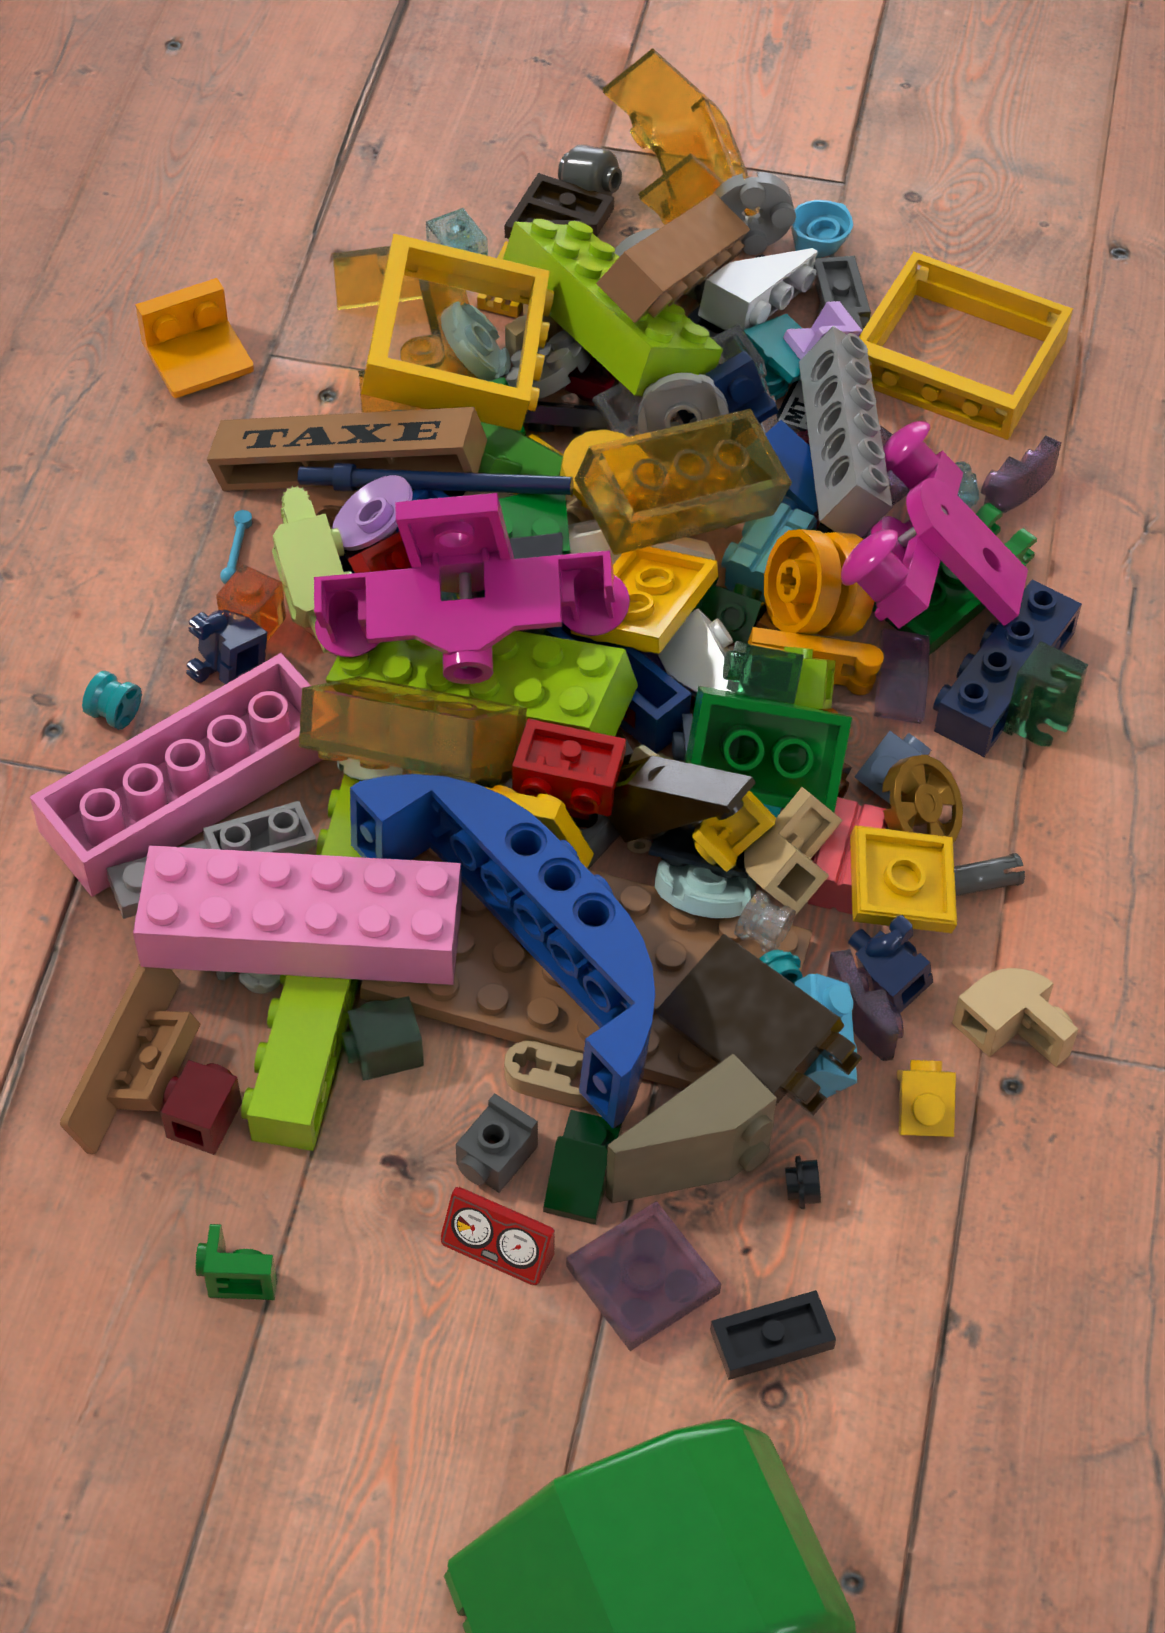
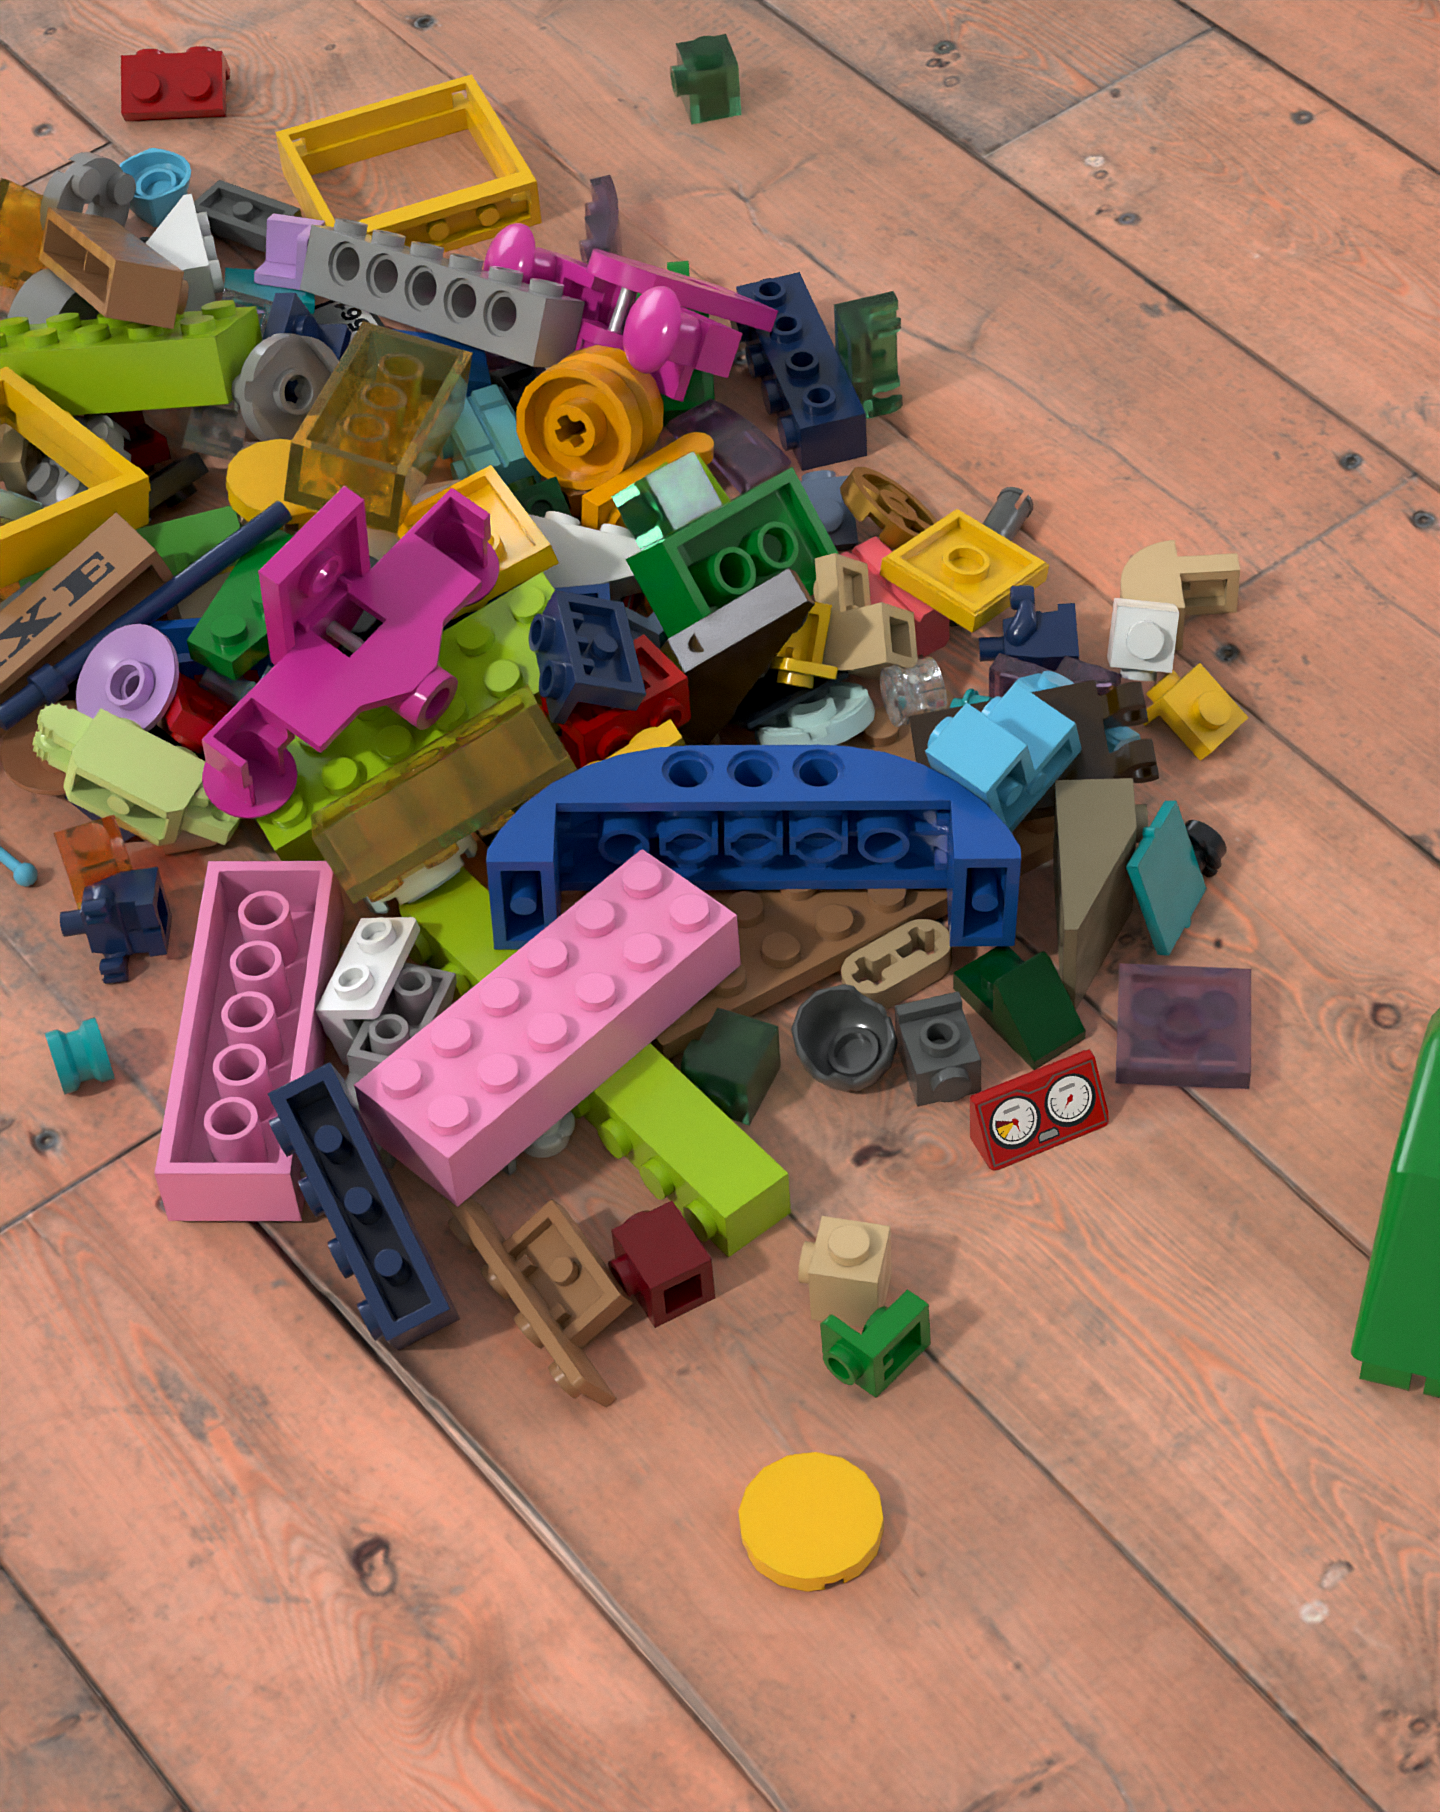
camera: 45 degrees left, 5 degrees down
(80, 1323) = (811, 1521): none -> yellow tile
(87, 918) = (363, 1207): none -> dark blue brick
(273, 1213) = (847, 1269): none -> tan brick
(274, 792) = (365, 977): none -> white bracket
(453, 1083) = (844, 1038): none -> dark grey hair
(567, 721) = (585, 655): none -> dark blue bracket
(713, 1014) = (1006, 751): none -> medium azure brick
(744, 1178) = (1166, 877): none -> teal piece
(772, 1334) = (1332, 969): black plate -> none
(914, 175) = (174, 84): none -> red bracket
(941, 1022) = (1142, 638): none -> white brick

